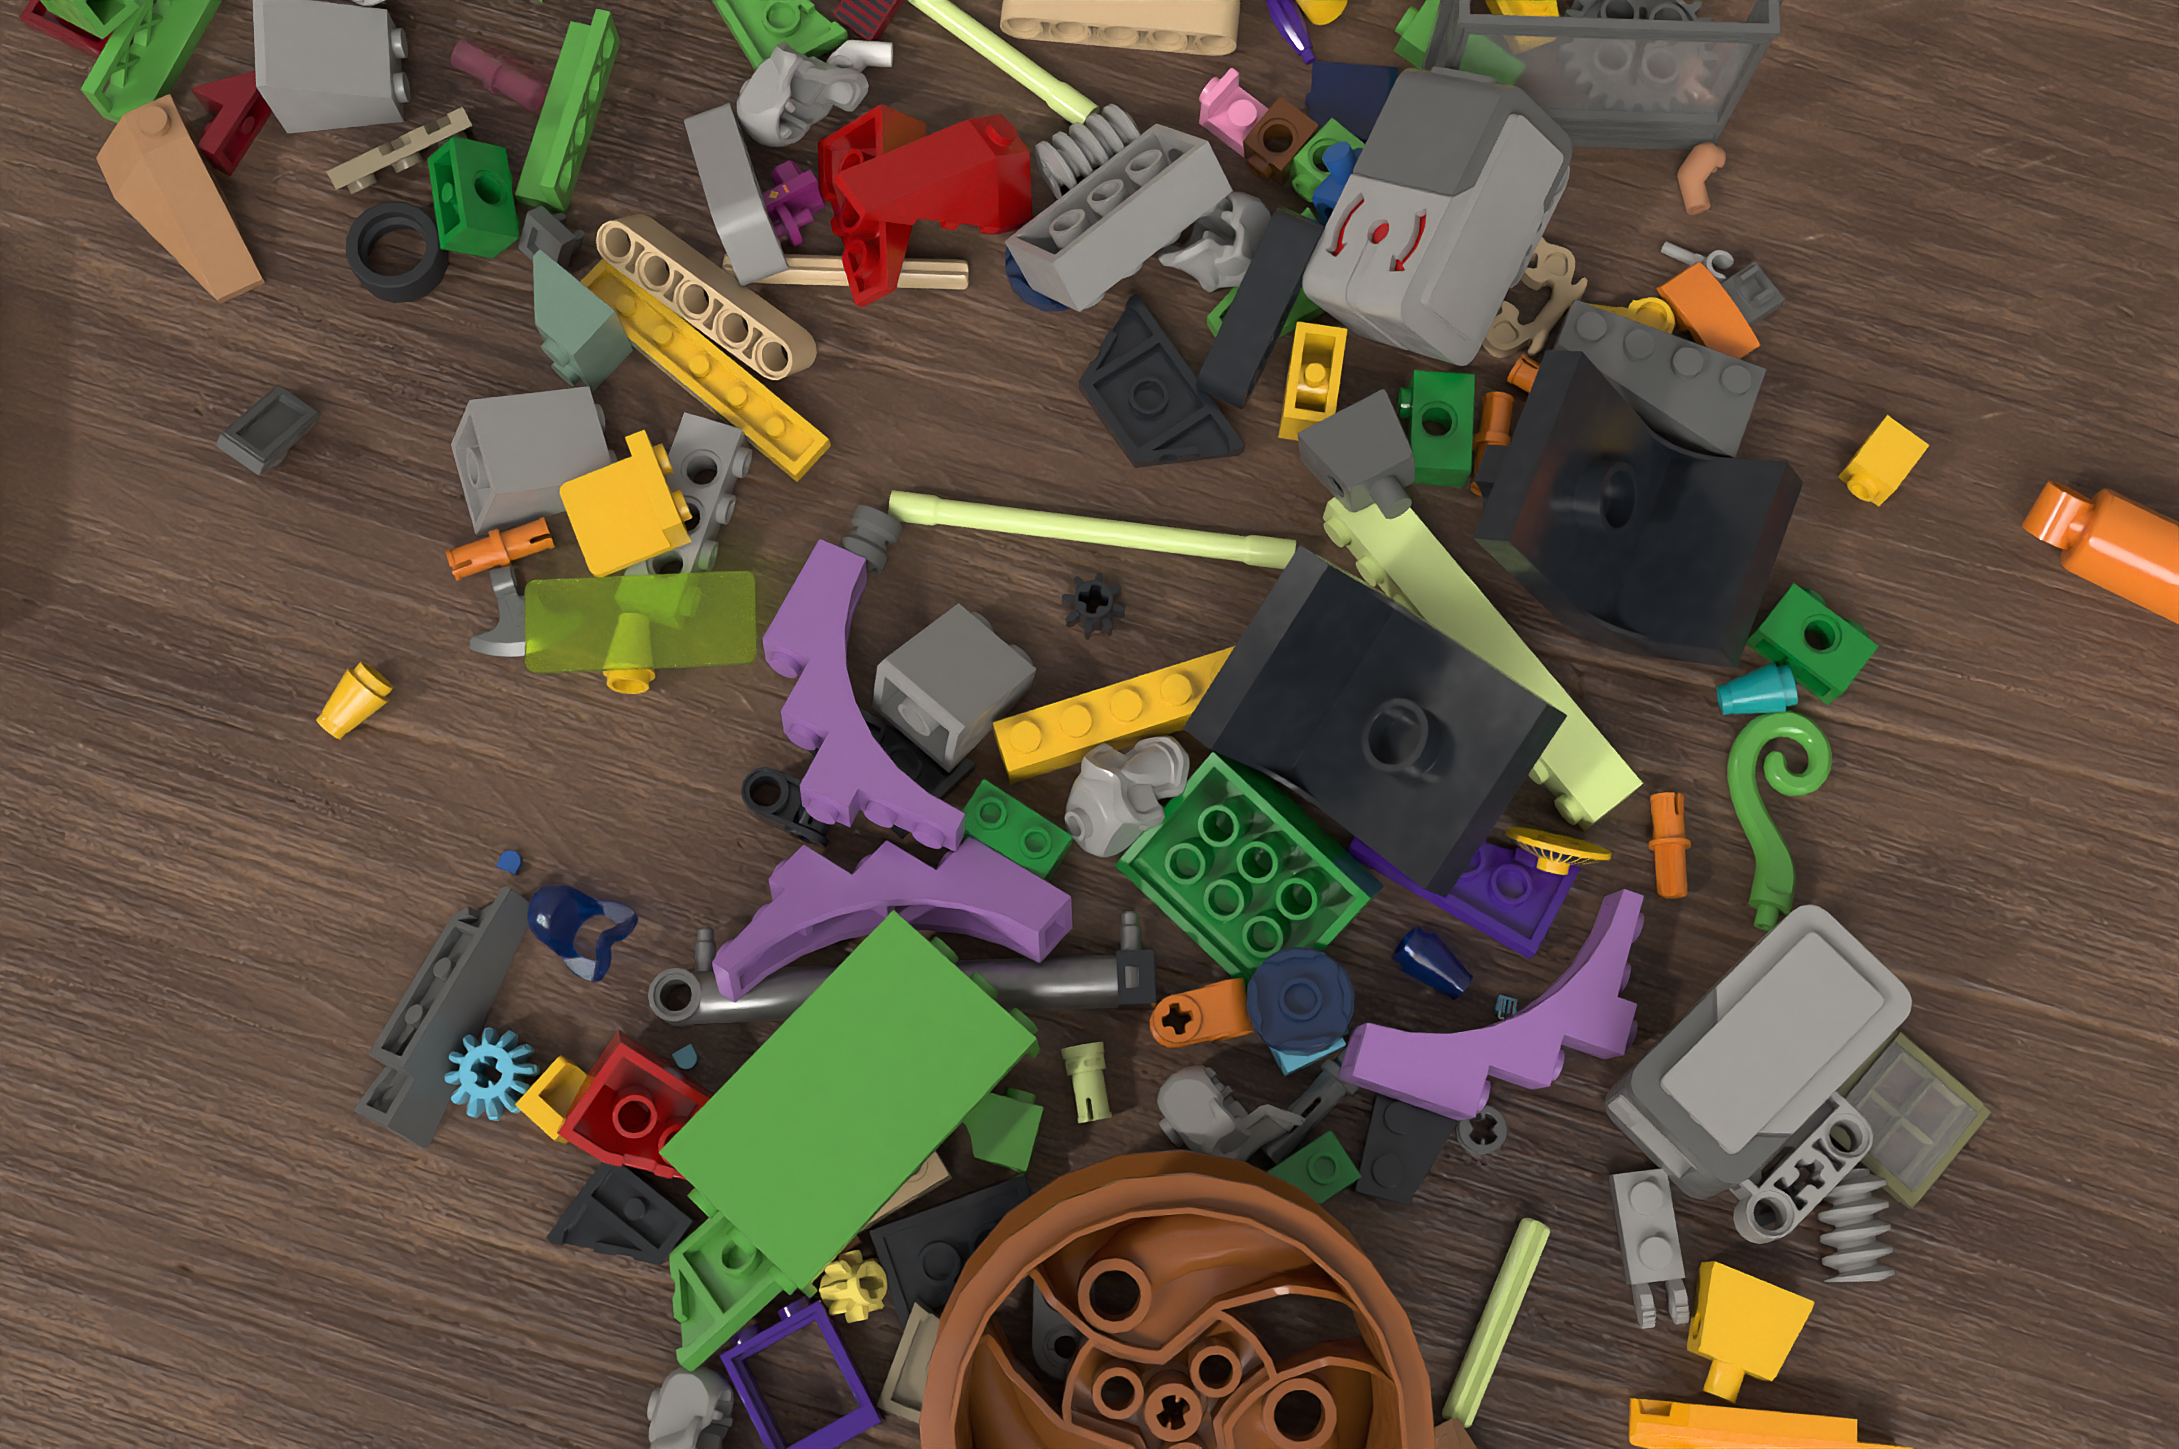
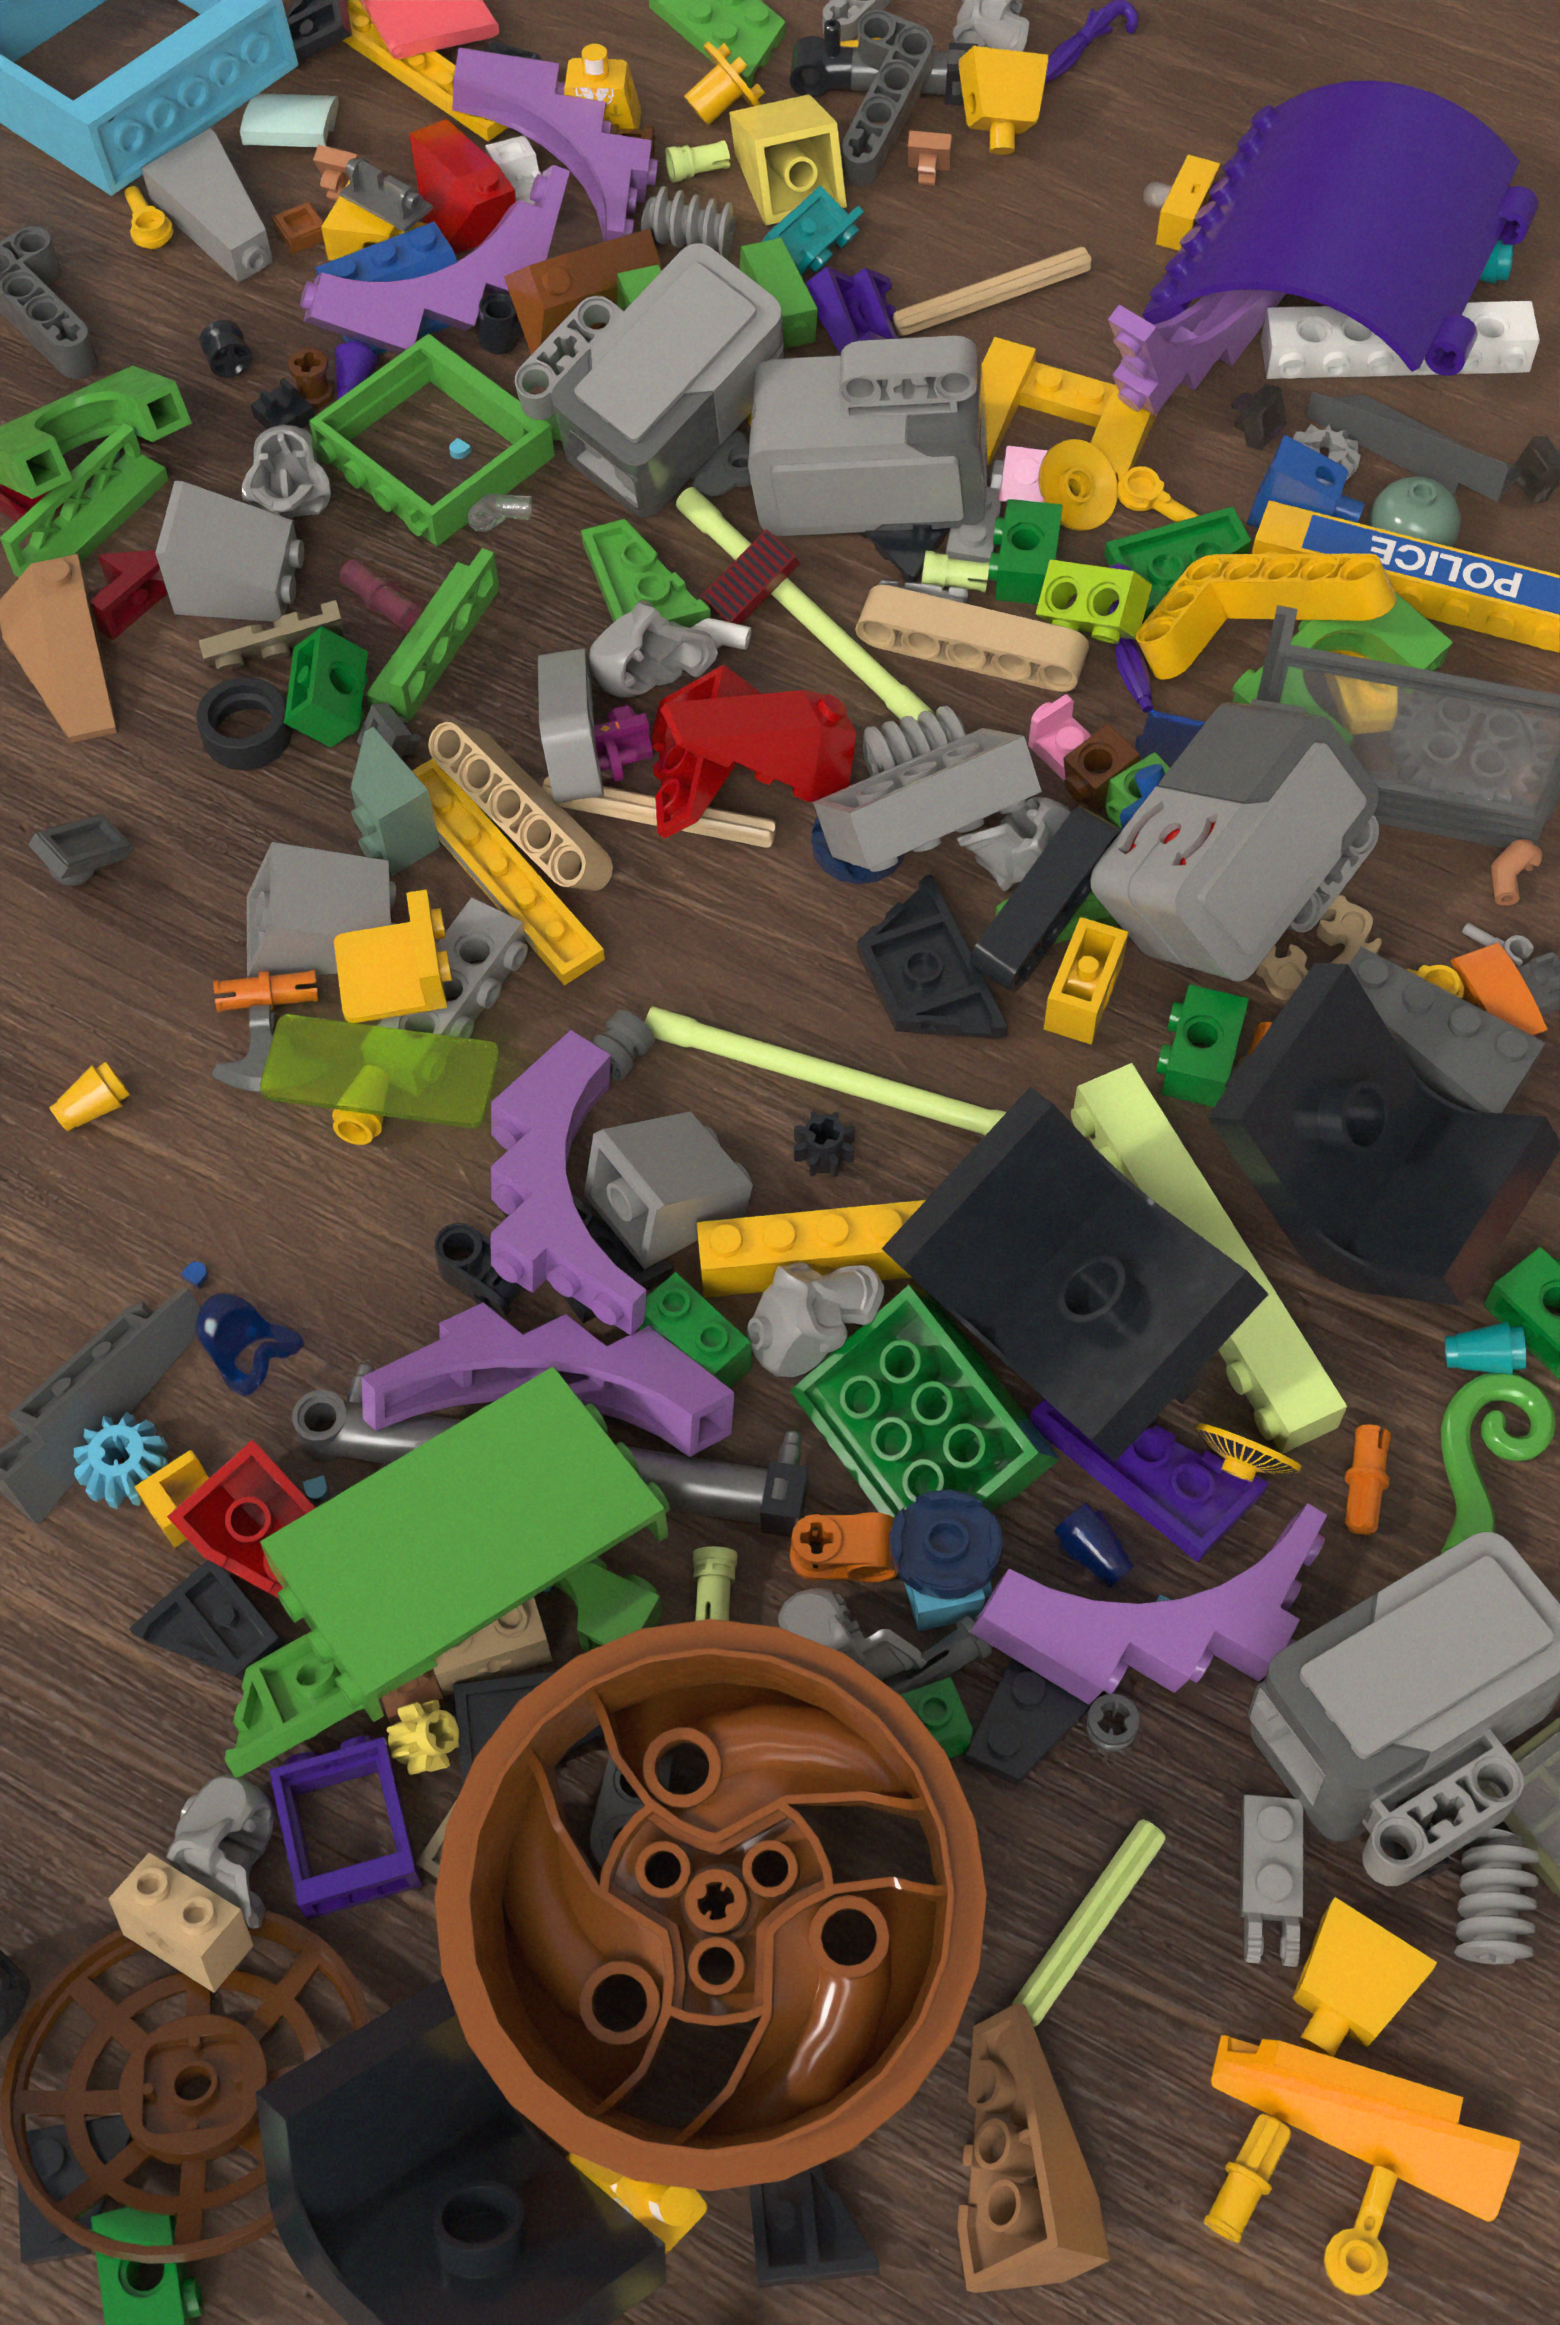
camera: 15 degrees right, 15 degrees down
(1362, 456) = (1117, 1045): dark grey torso -> none

